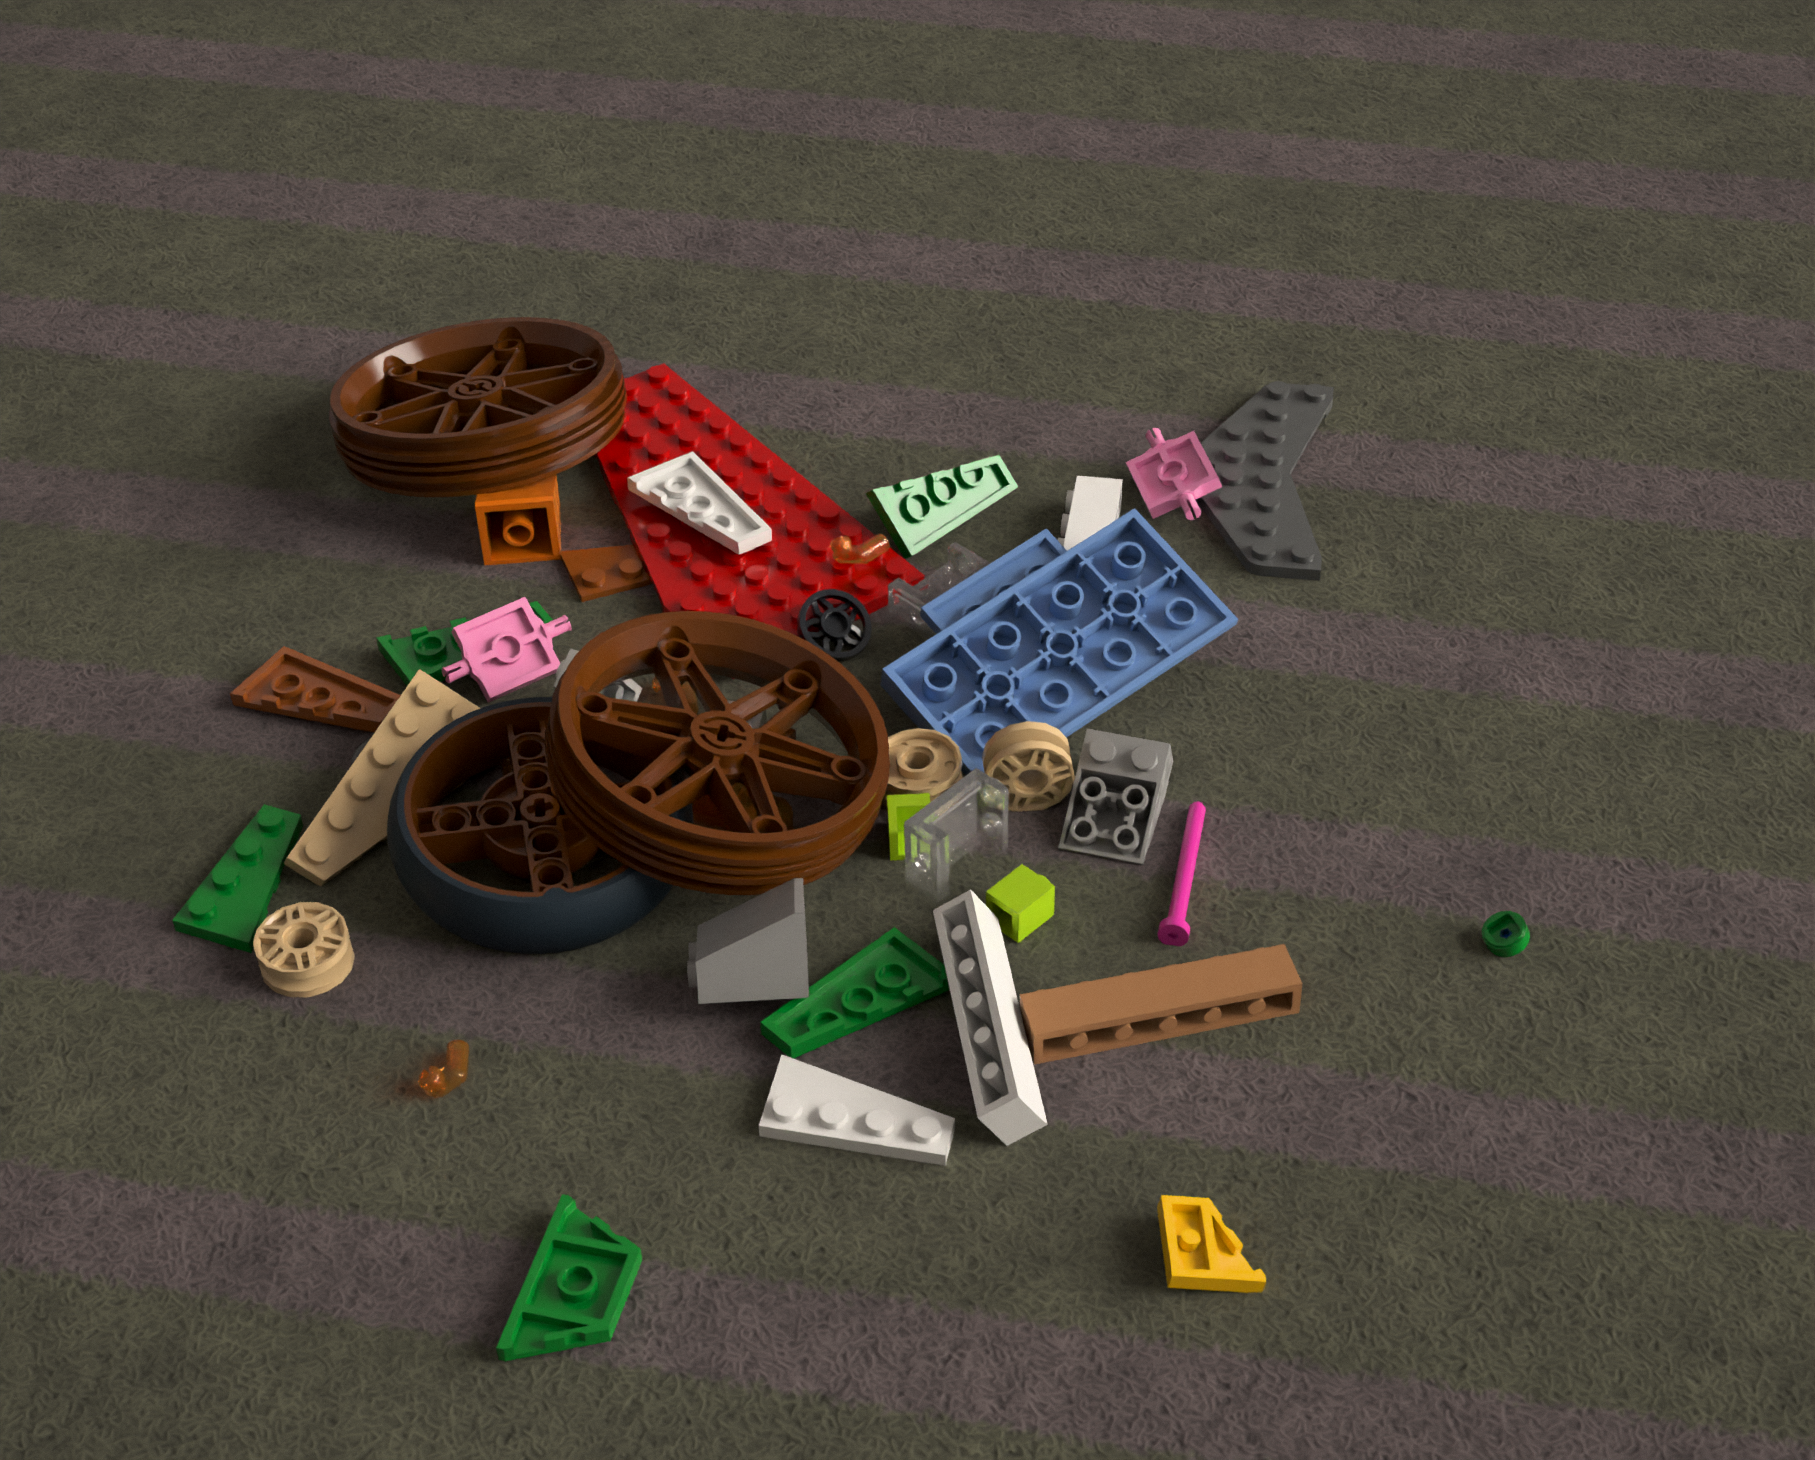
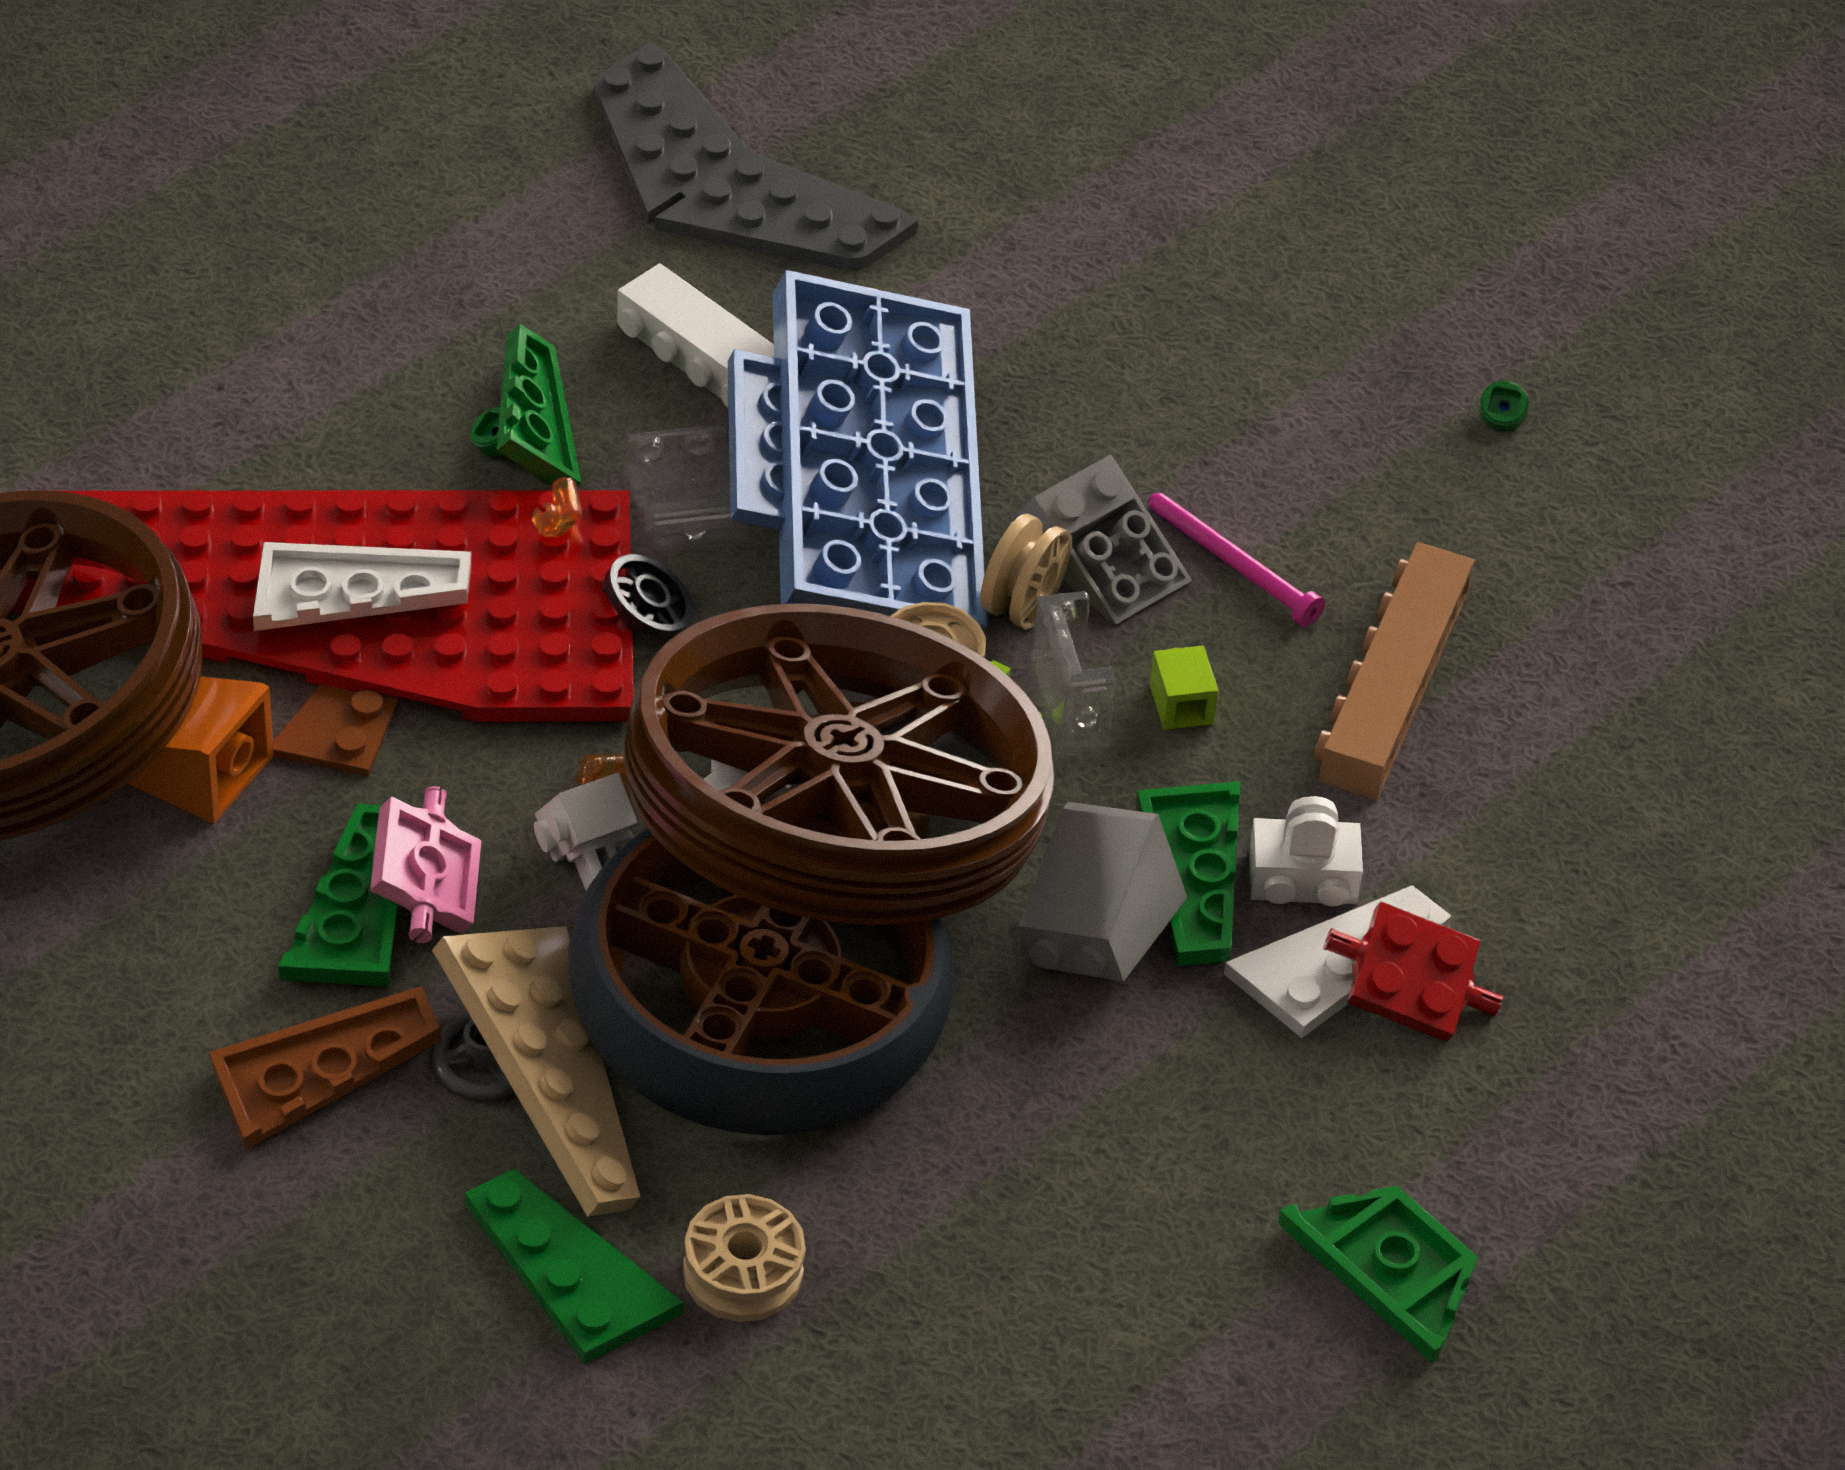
camera: 60 degrees left, 5 degrees up
(454, 1073) = (1026, 1224): clear orange arm -> none
(858, 1156) = (1413, 971): none -> red plate
(915, 1045) = (1306, 856): none -> white brick
(989, 1019) = (1292, 770): white brick -> none
(1173, 474) = (676, 226): bright pink plate -> none
(1201, 1249) = (1694, 810): yellow wing -> none

